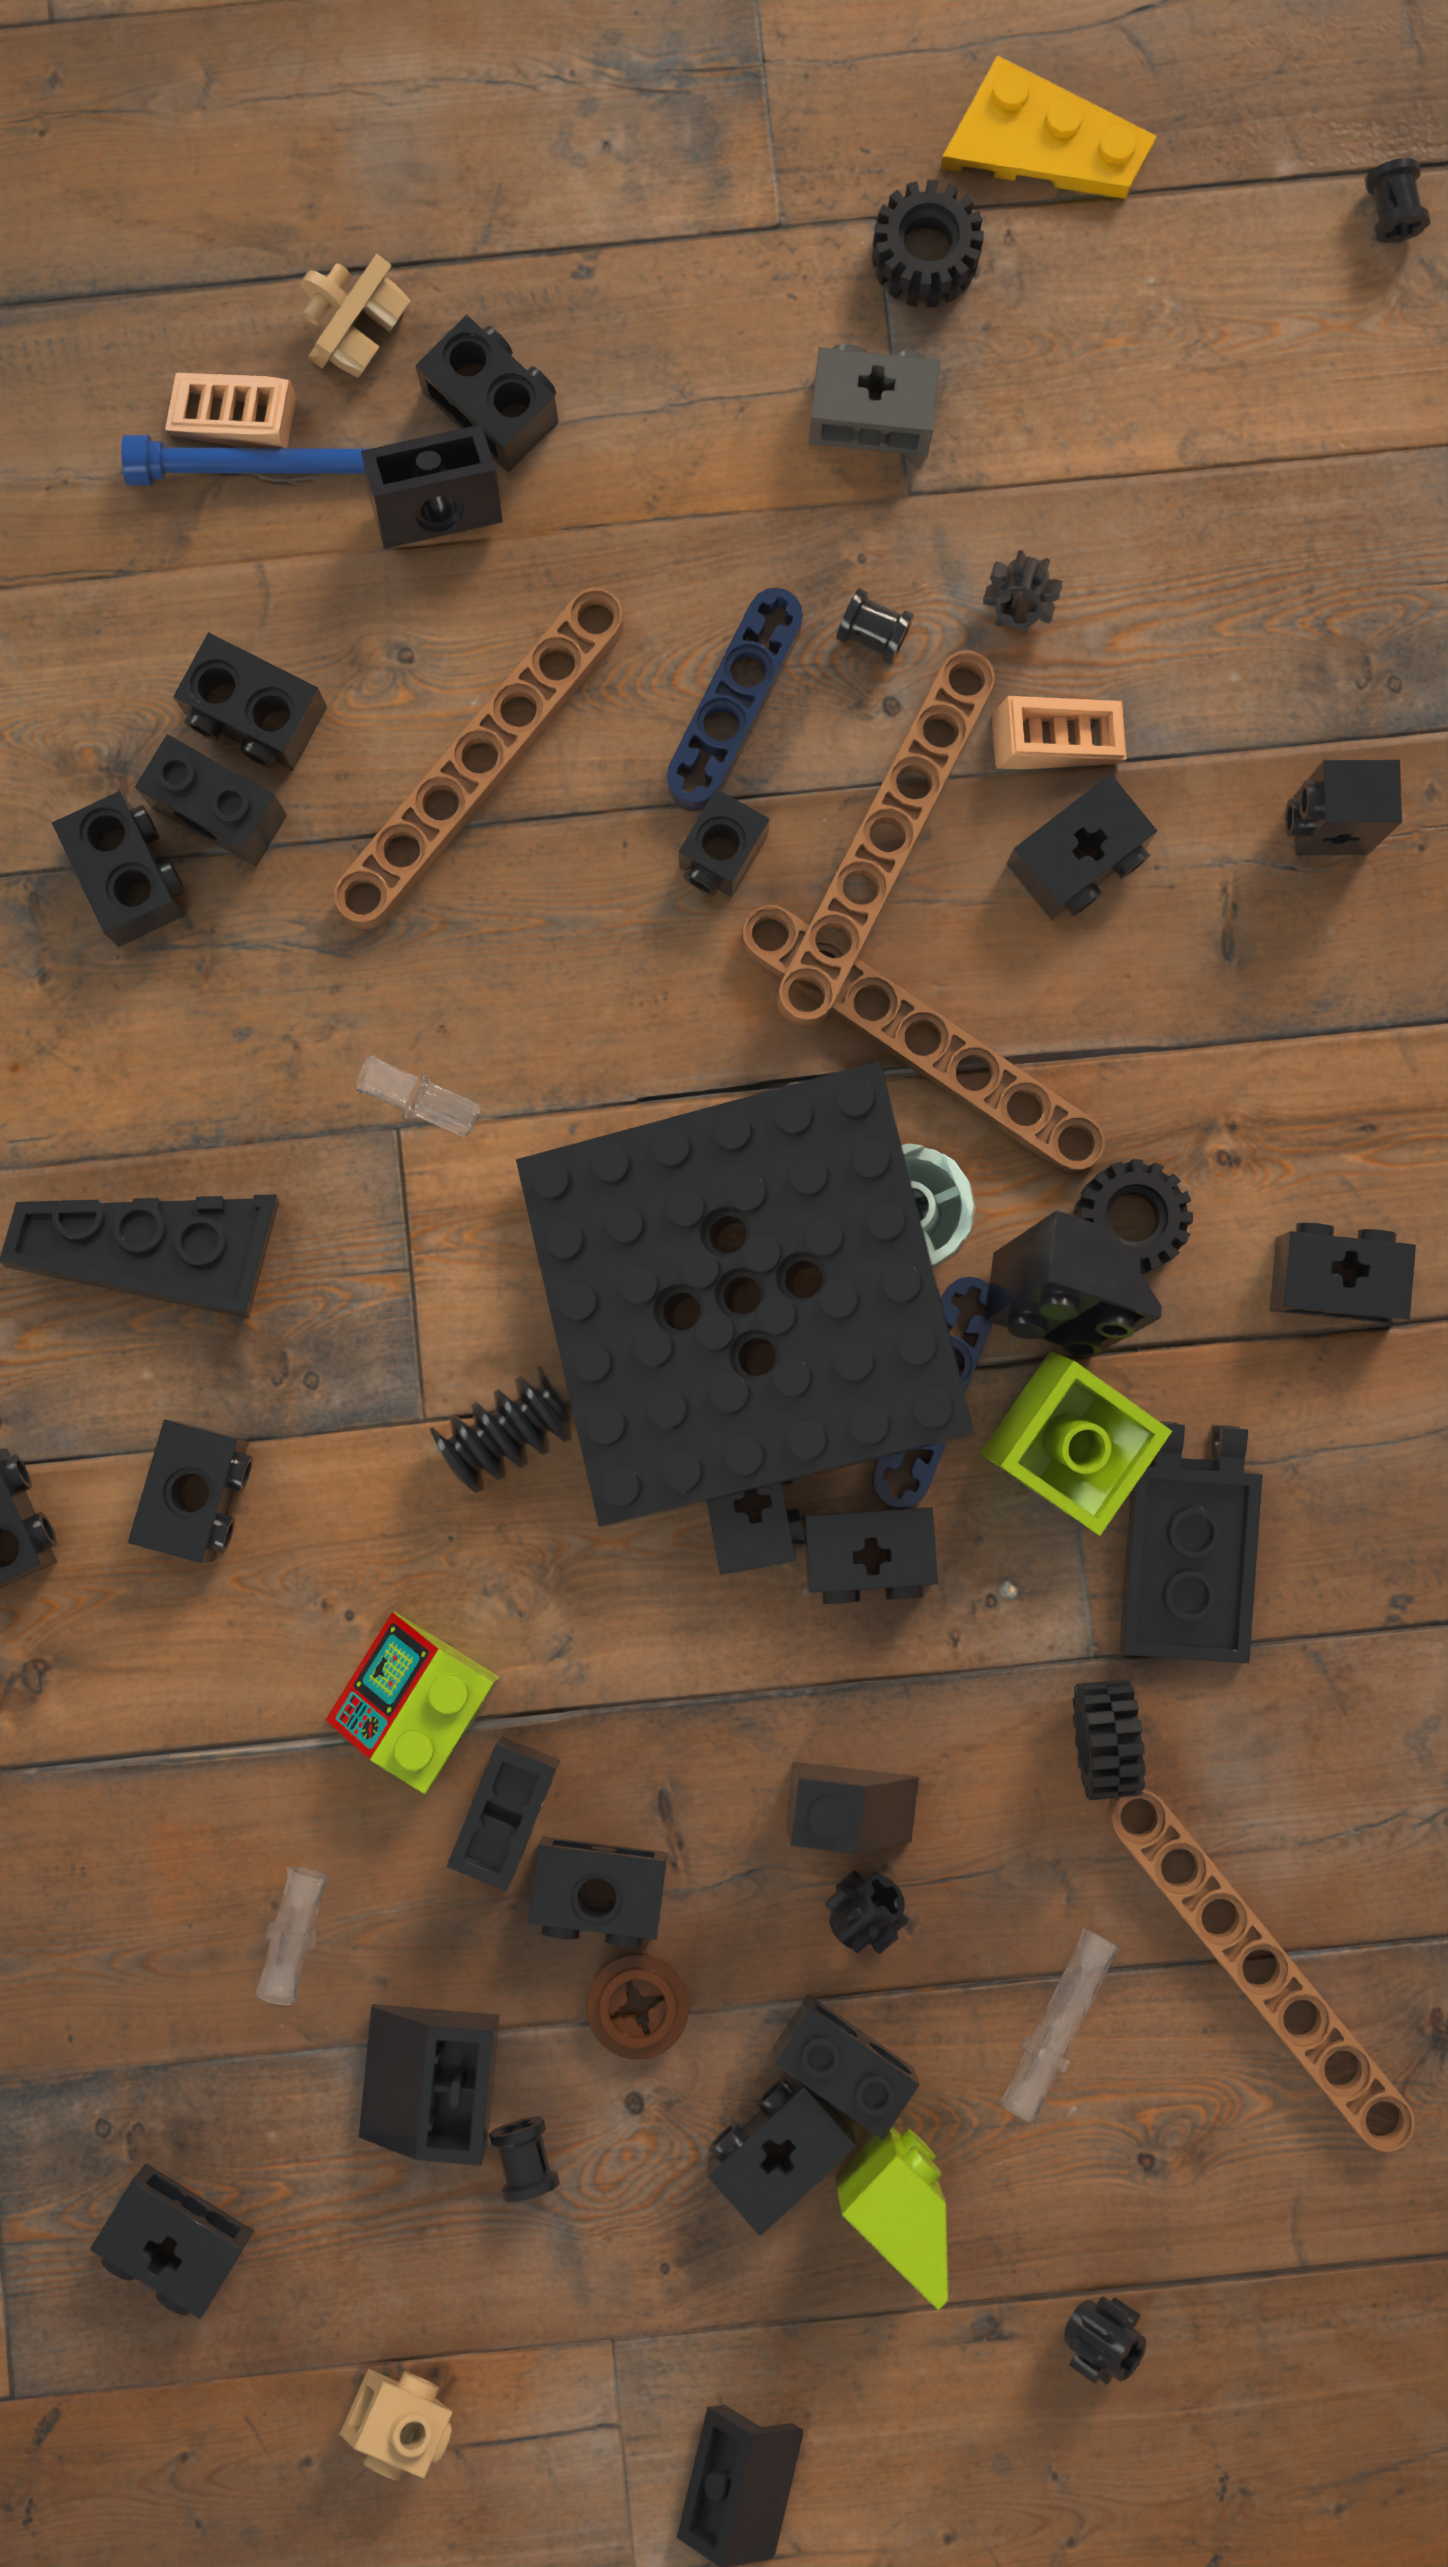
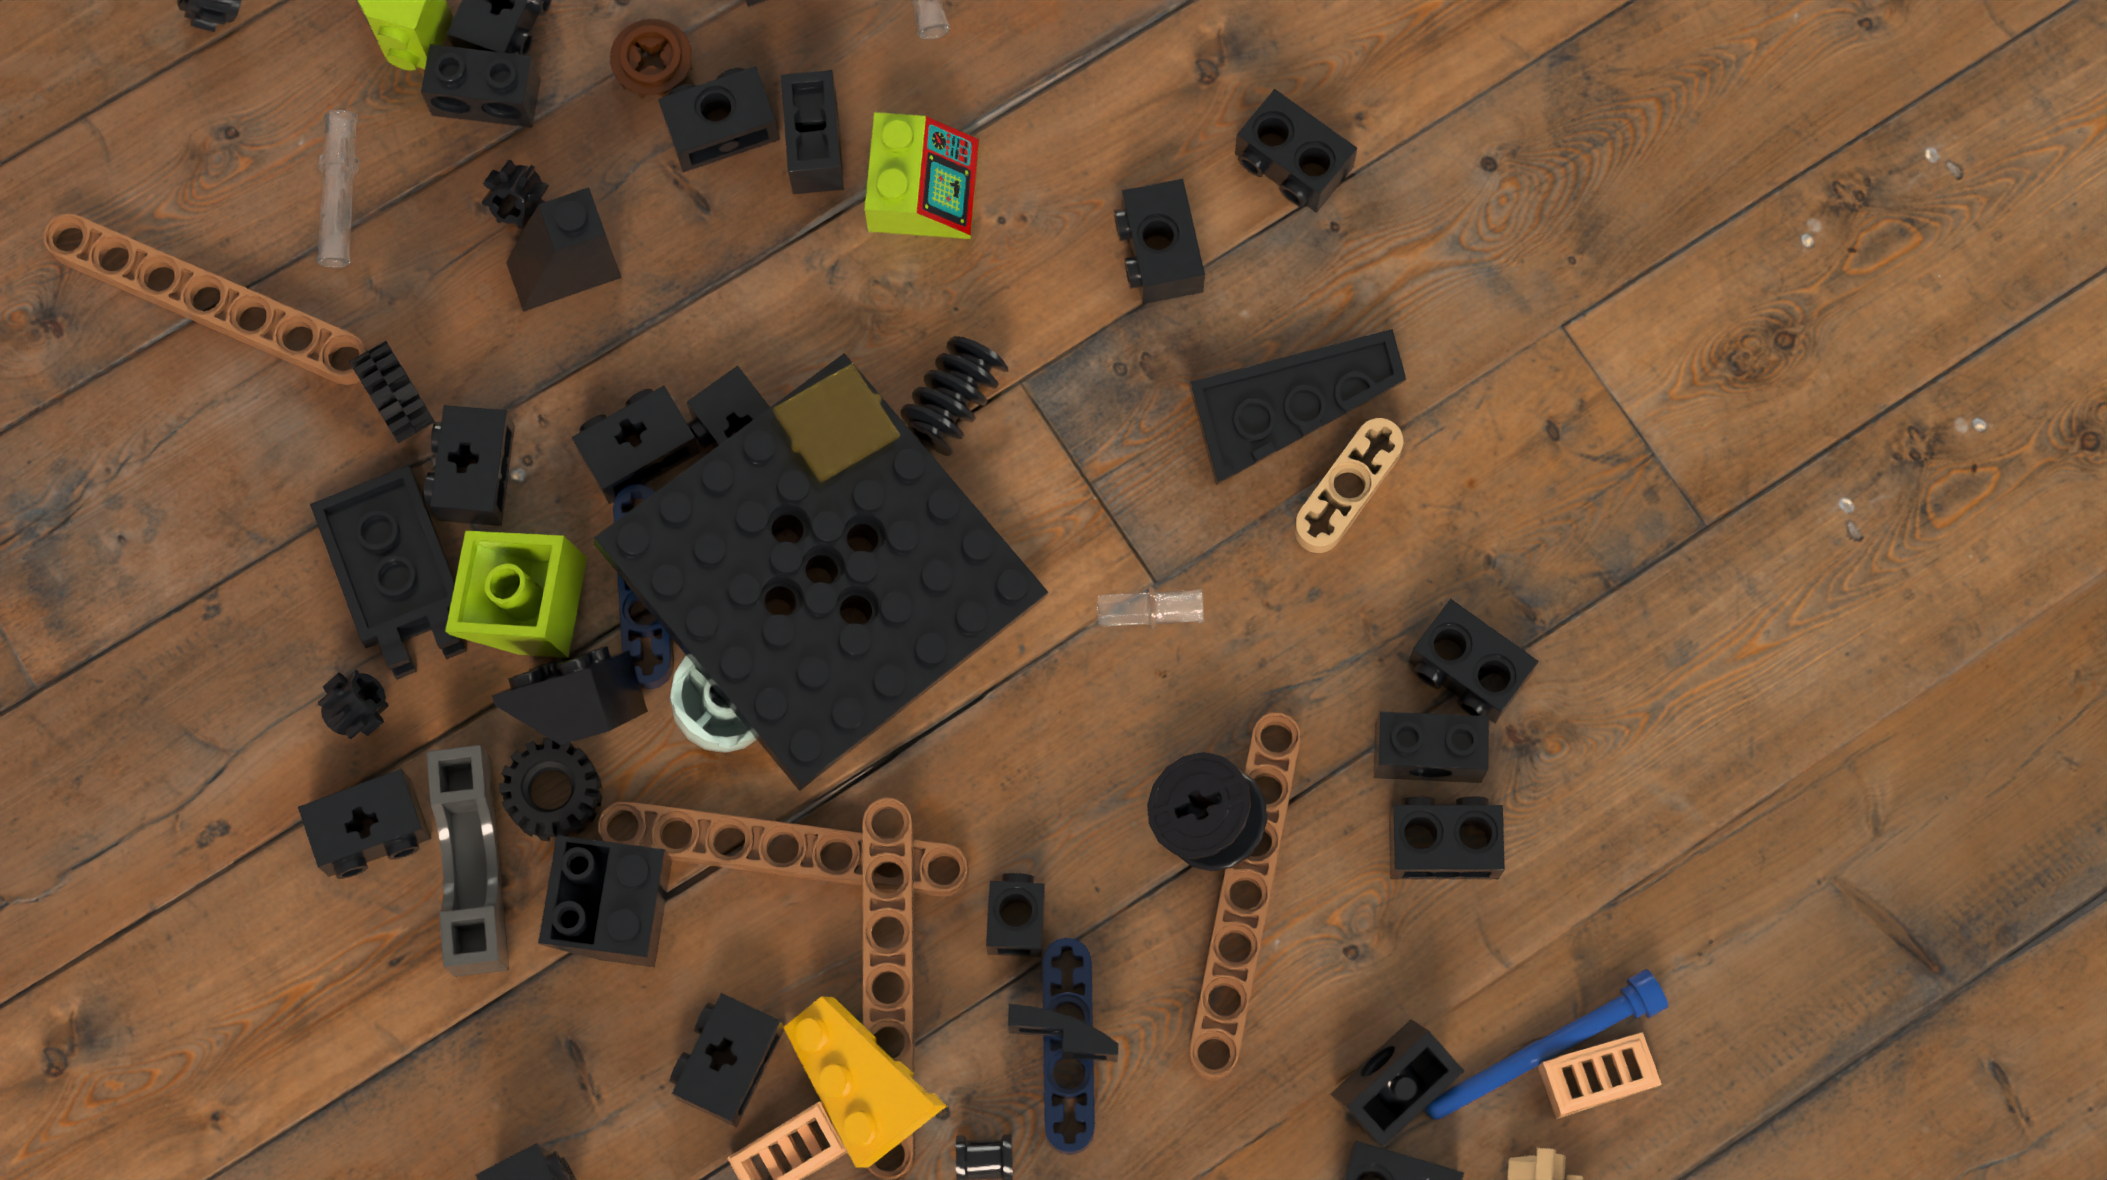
camera: 160 degrees right, 10 degrees down
(106, 1158) = (1359, 447): none -> tan beam
(500, 820) = (1181, 800): none -> black piece
(648, 1442) = (836, 422): none -> clear yellow piece
(725, 680) = (1079, 1038): none -> black slope
(965, 743) = (860, 1085): none -> yellow wing
(1026, 1631) = (481, 491): none -> black brick
(1134, 1065) = (606, 900): none -> black slope
(1242, 1206) = (472, 883): none -> dark grey arch
(1300, 1410) = (353, 704): none -> black gear

